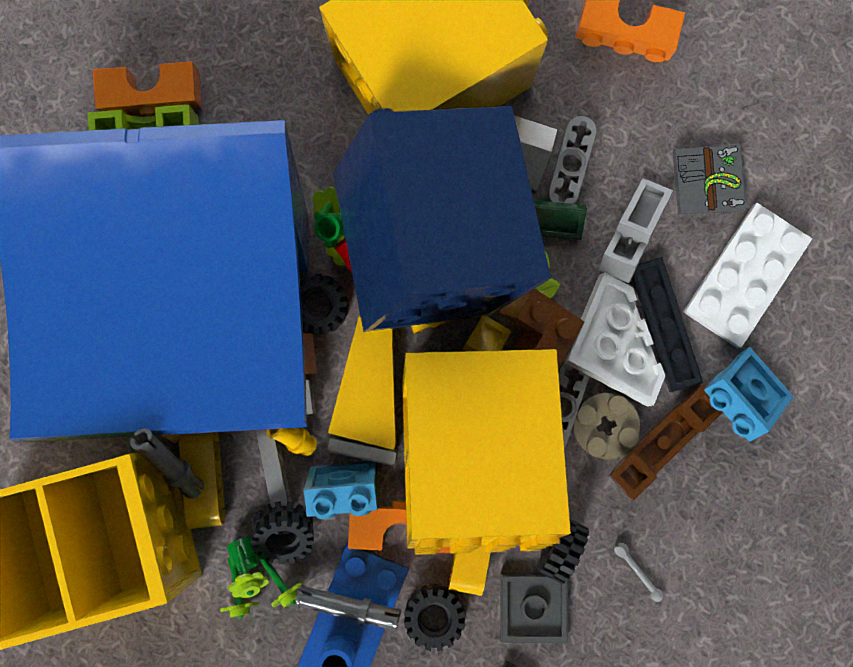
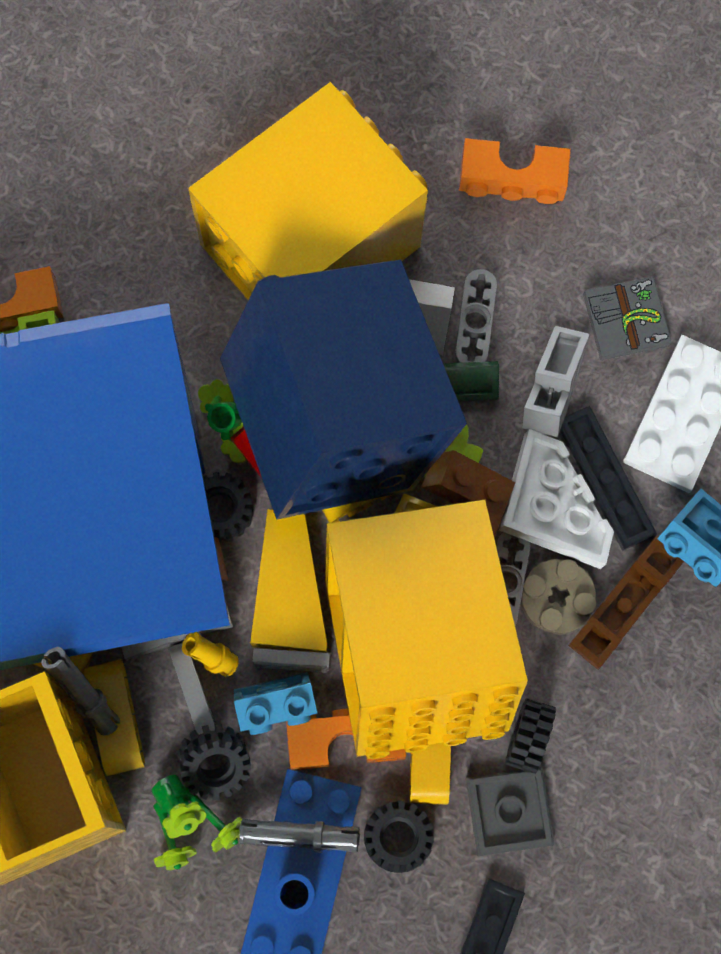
camera: 10 degrees left, 10 degrees down
(622, 550) = (598, 733): light grey hinge -> none

